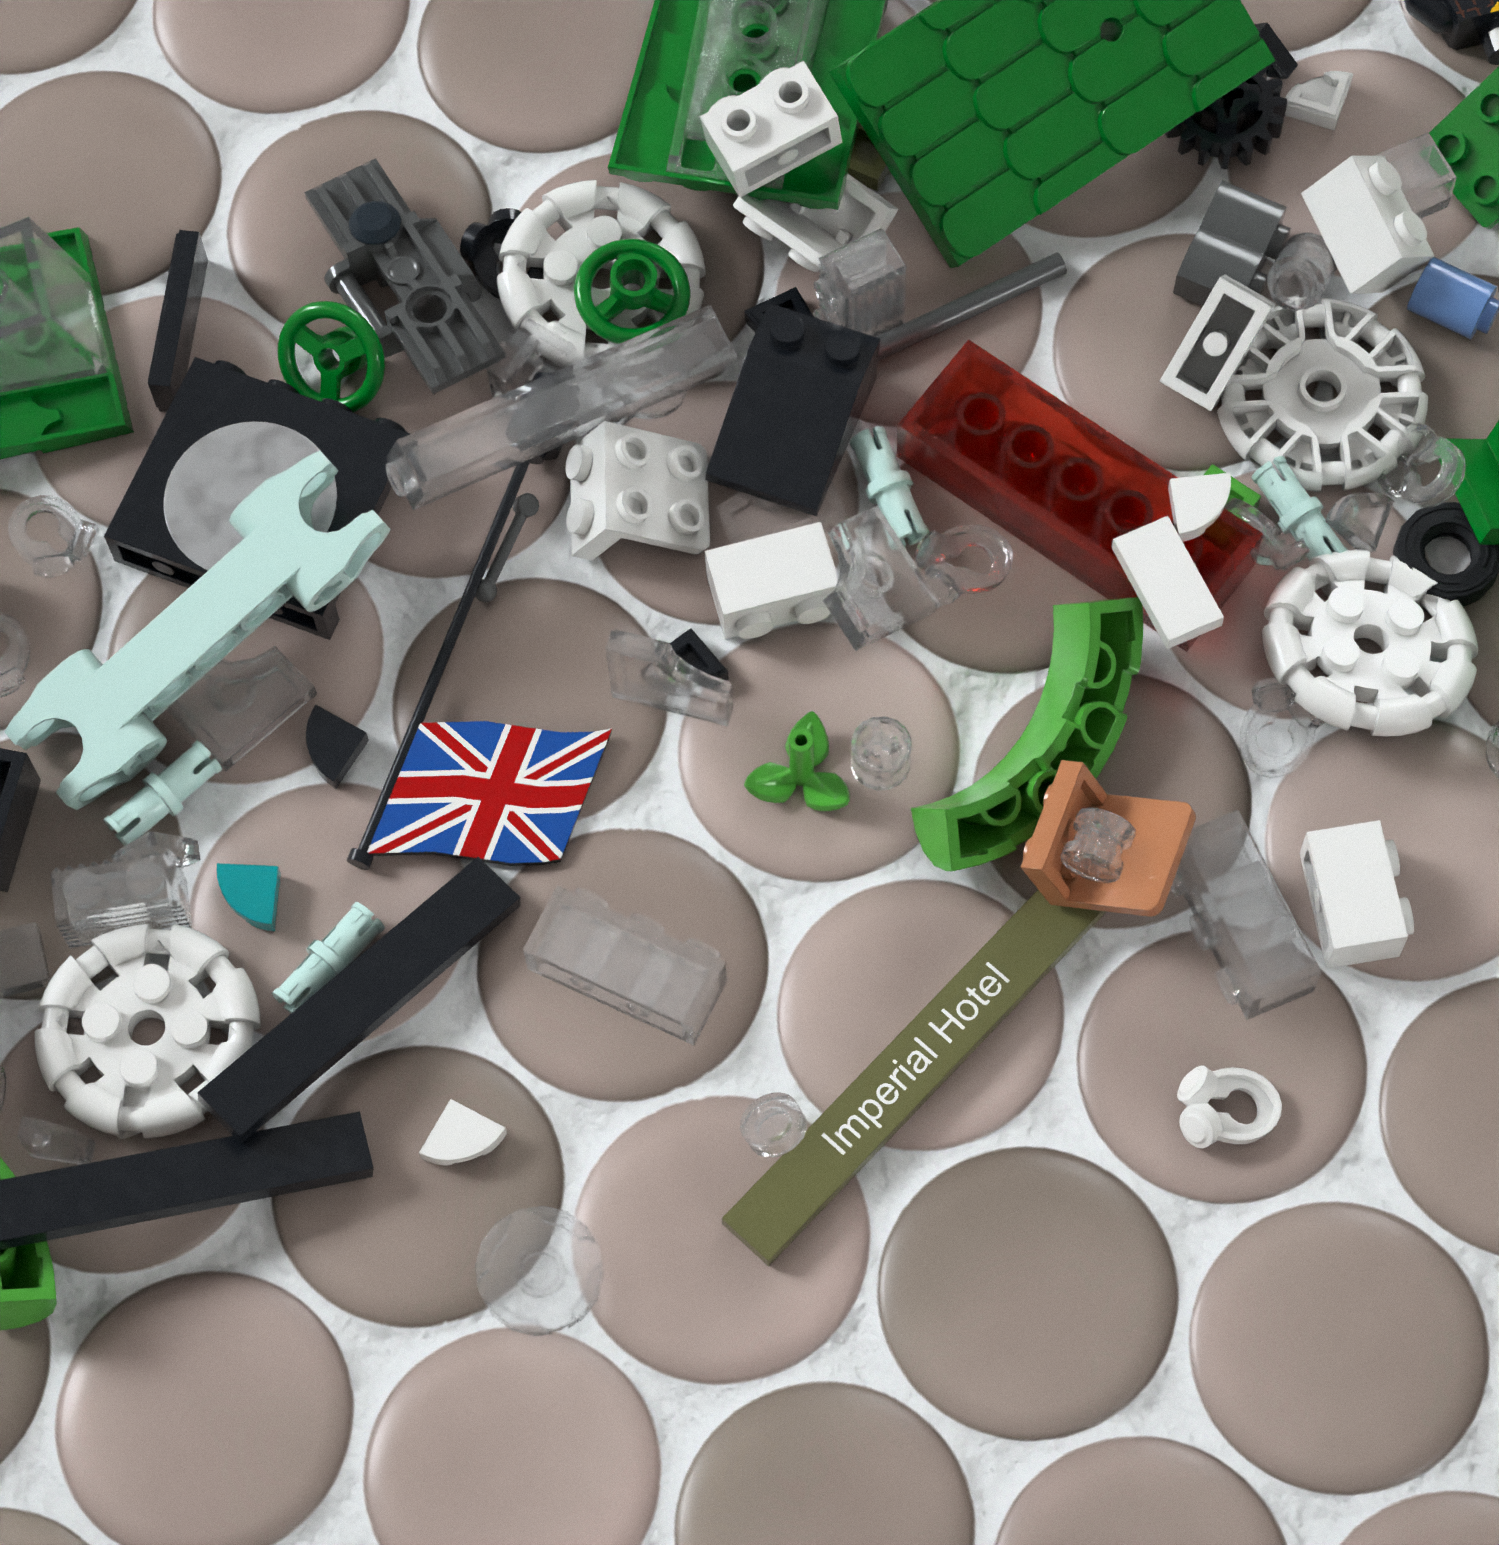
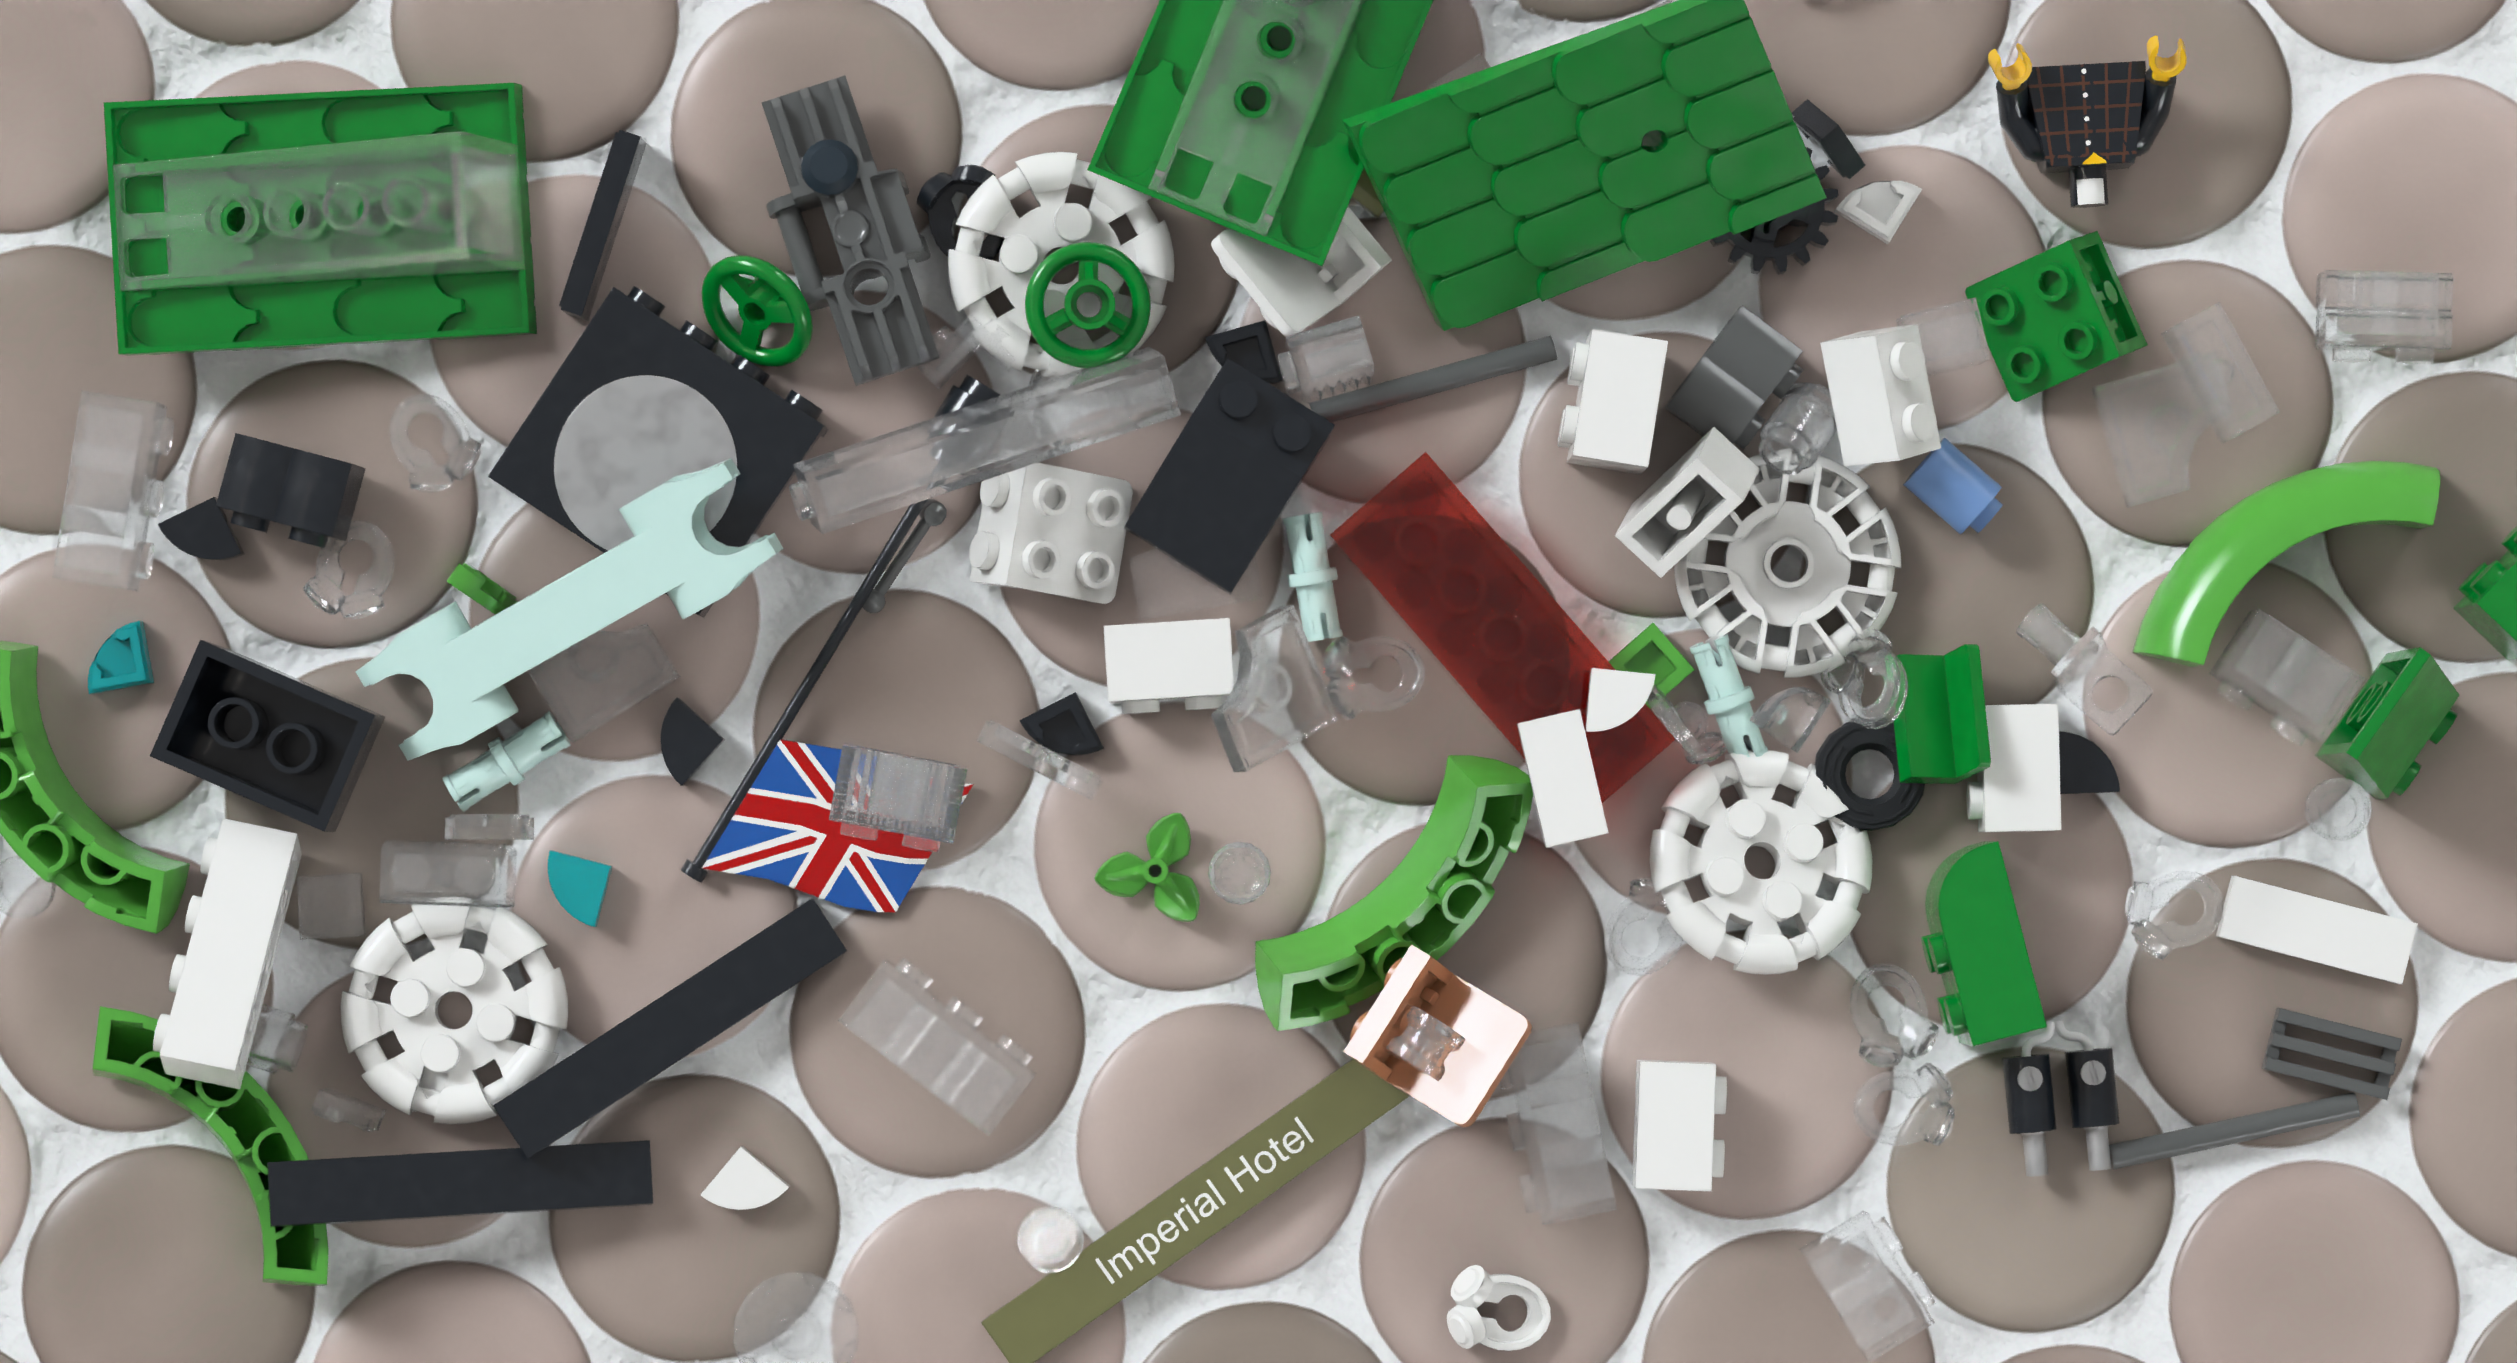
camera: 10 degrees right, 20 degrees up
(98, 638) = (481, 588): none -> bright green tile
(329, 956) = (644, 975): light aqua pin -> none
(541, 740) = (898, 796): none -> clear brick
(771, 128) = (1264, 181): white brick -> none
(1128, 275) = (1615, 401): none -> white brick

